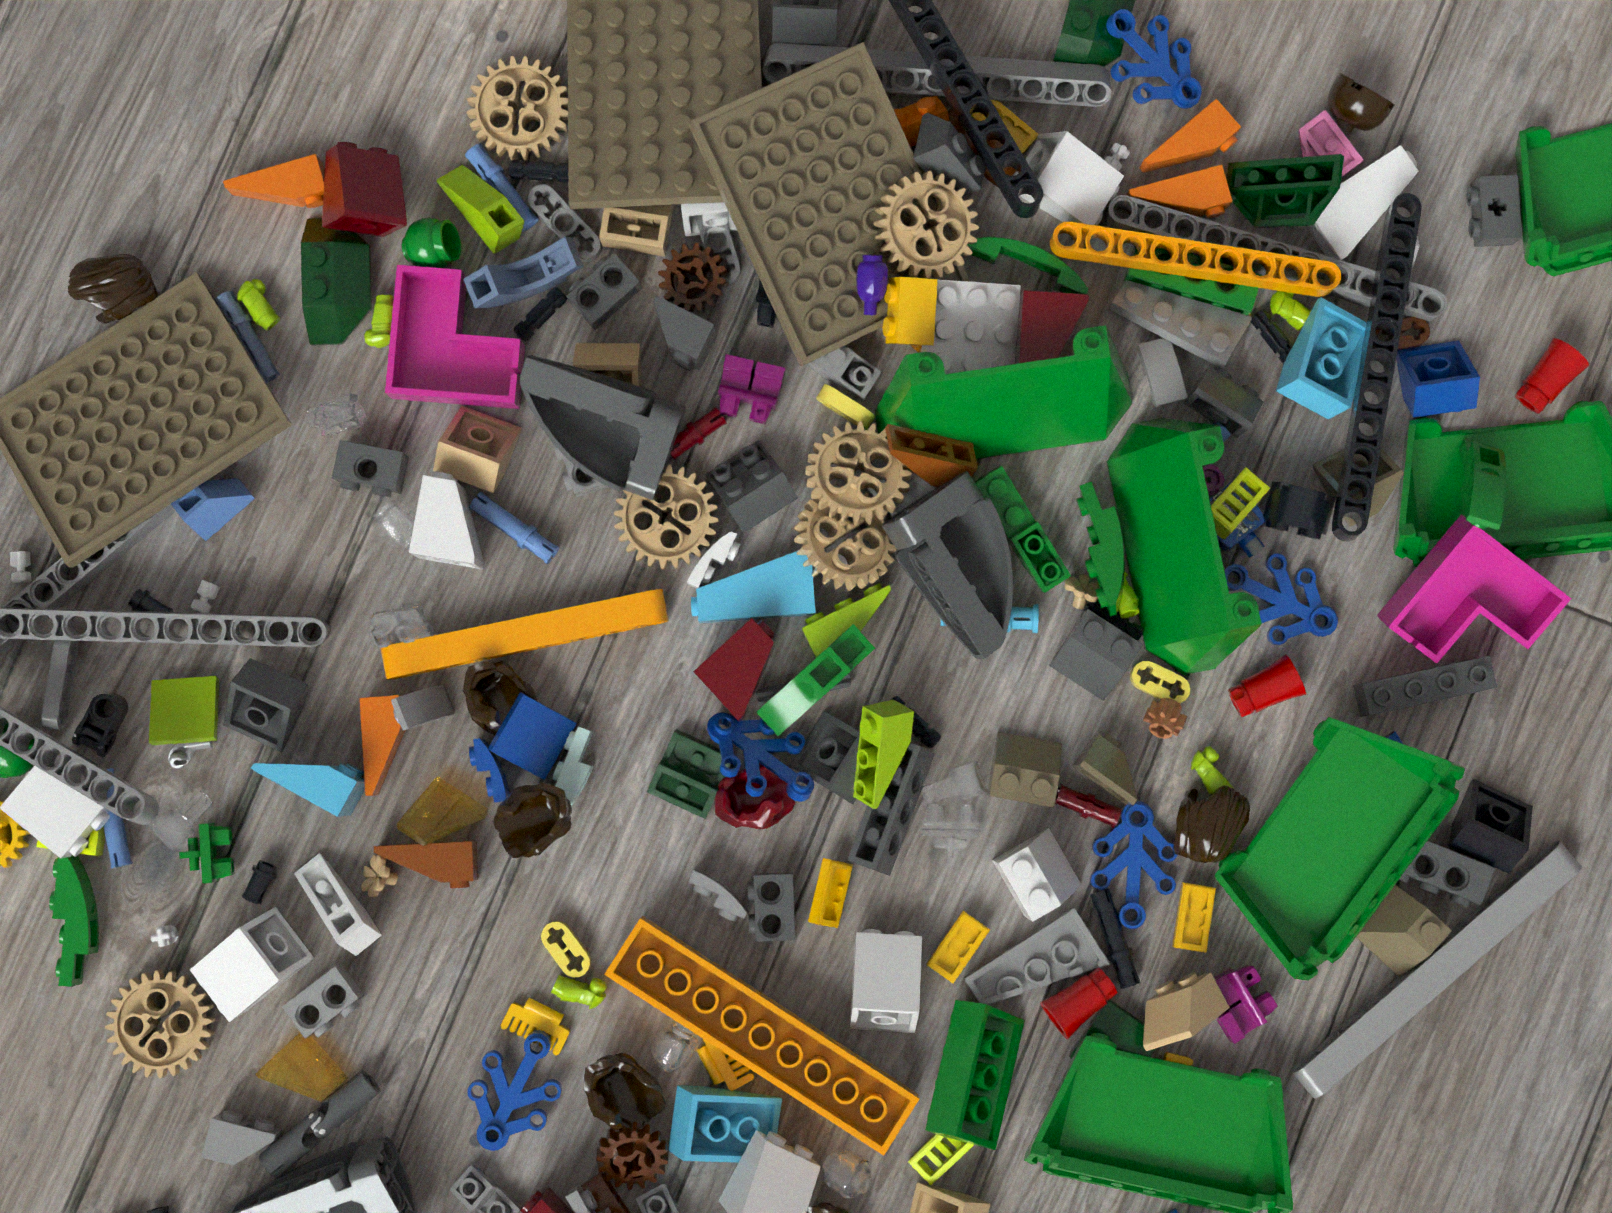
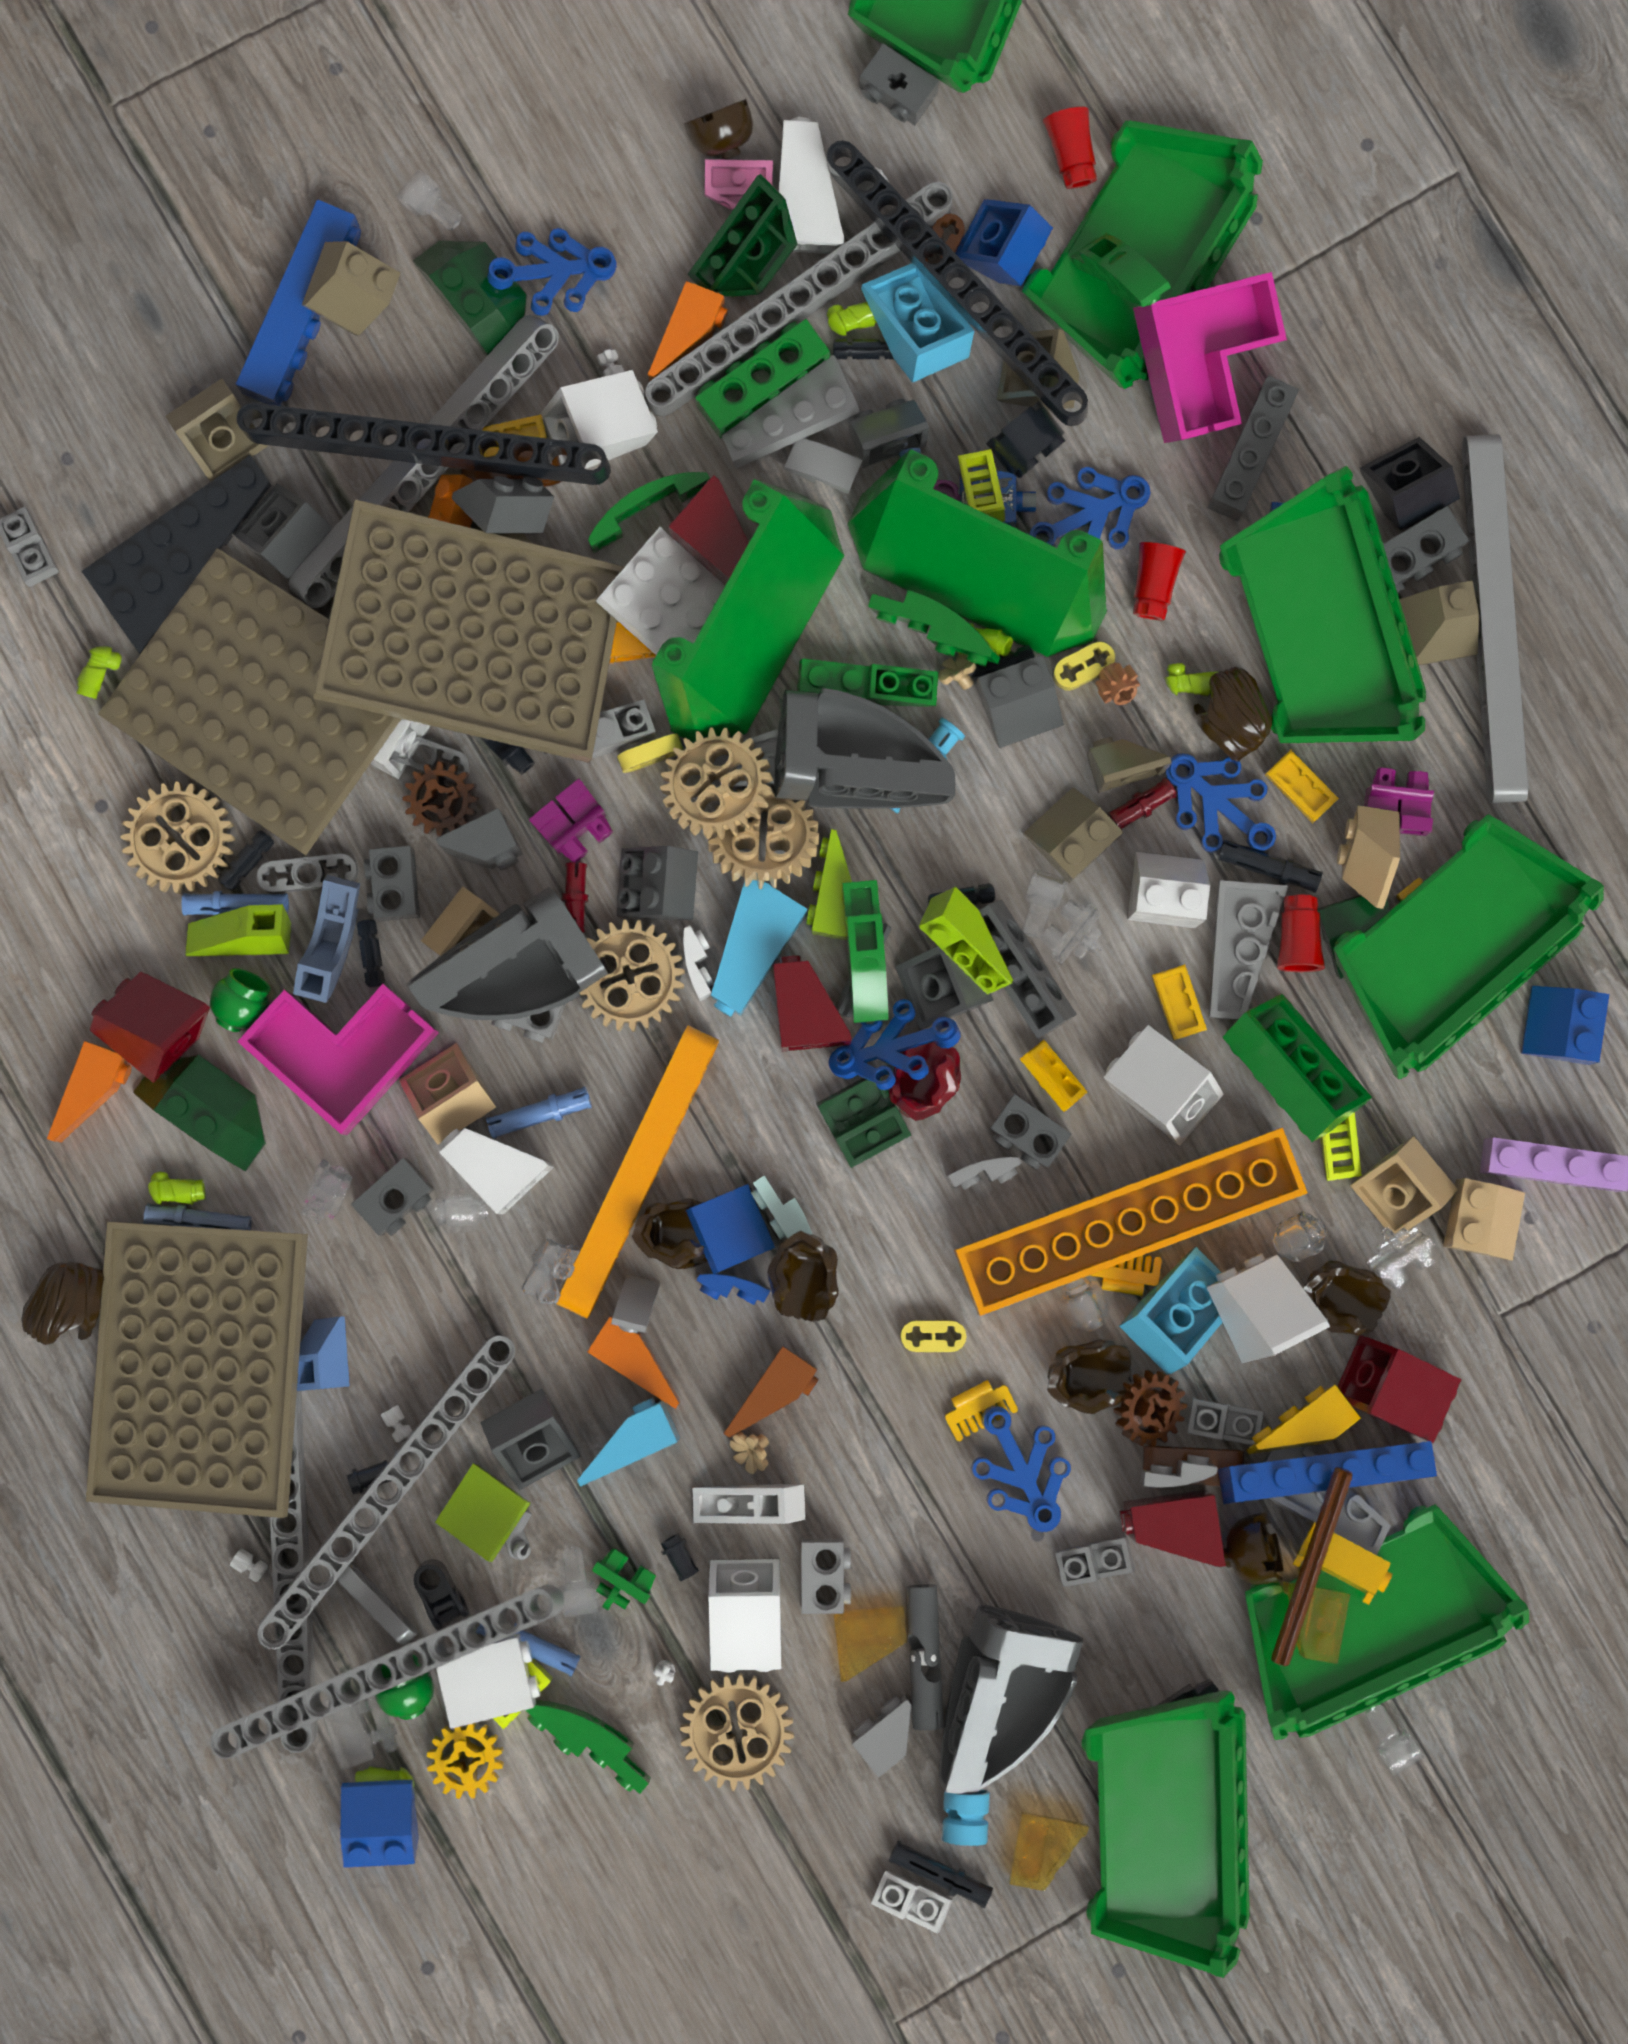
camera: 55 degrees left, 0 degrees up
(381, 322) = (274, 1093): lime arm -> none
(439, 813) = (737, 1356): clear yellow wing -> none
(576, 991) = (975, 1354): lime arm -> none
(637, 228) = (362, 815): tan slope -> none
(871, 282) = (564, 647): dark purple plant -> none
(902, 239) = (548, 594): tan gear -> none
(910, 311) = (614, 634): yellow brick -> none
(930, 455) = (749, 710): dark orange slope -> none
(1198, 139) = (648, 281): orange slope -> none
(1209, 253) = (756, 349): light orange beam -> none

